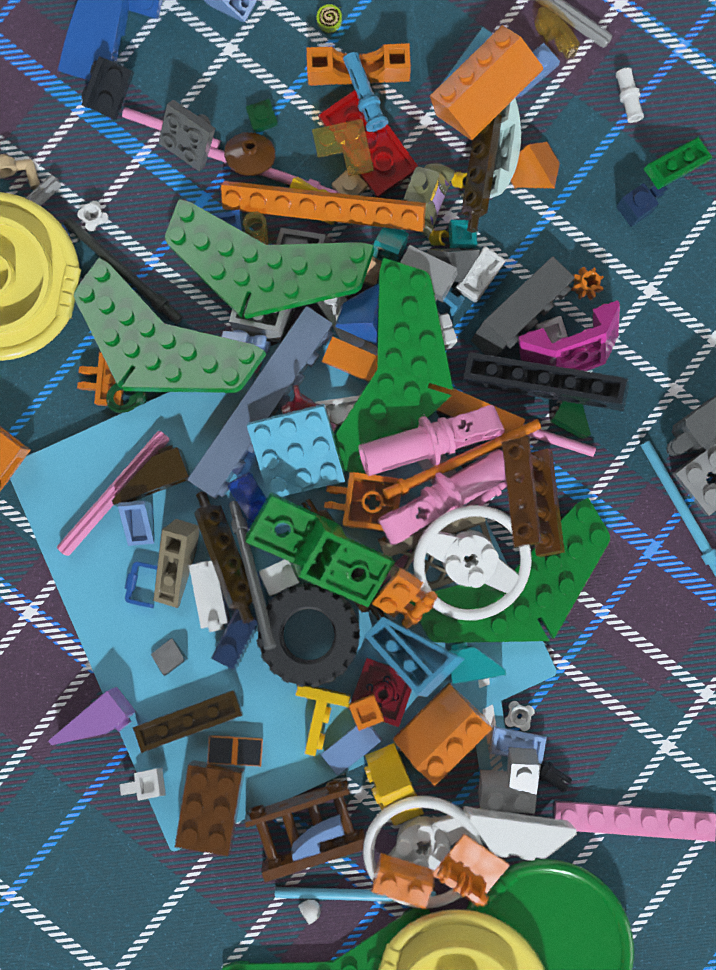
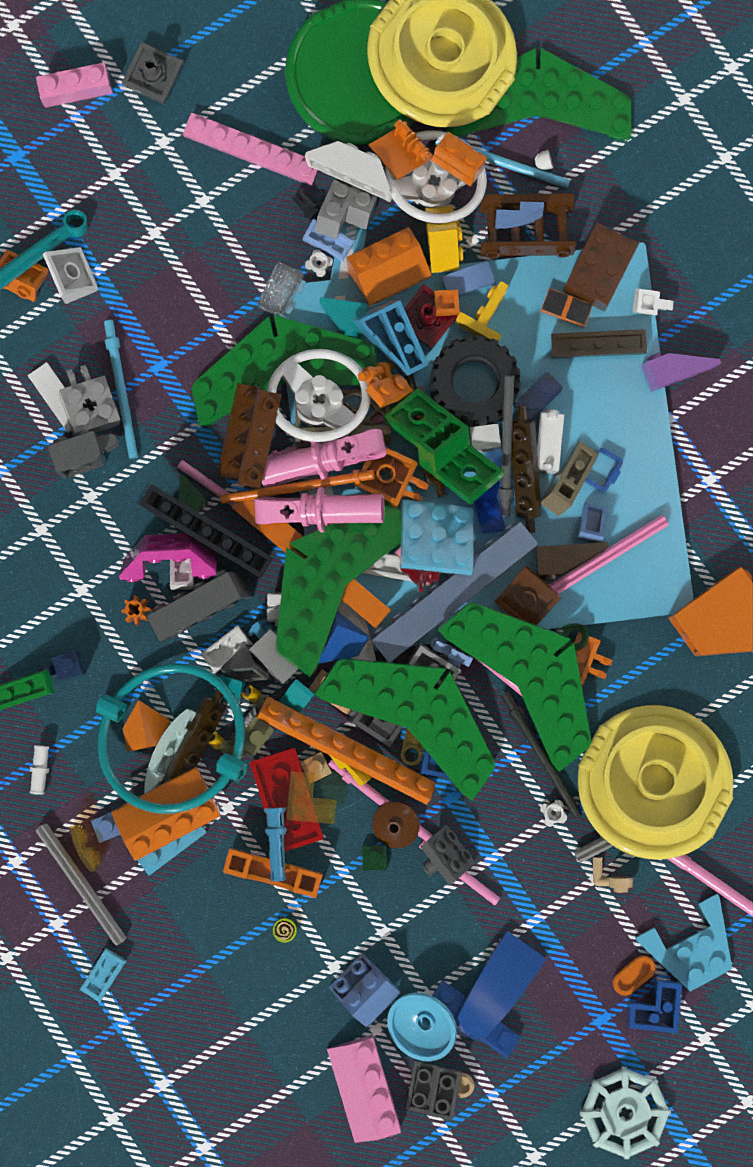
camera: 165 degrees left, 0 degrees up
(107, 87) = (504, 925): black bracket -> none
(168, 657) = (599, 401): slope -> none
(181, 420) = (528, 597): none -> reddish brown plate
(437, 142) = (114, 709): none -> teal piece
(550, 670) = (281, 290): none -> clear brick

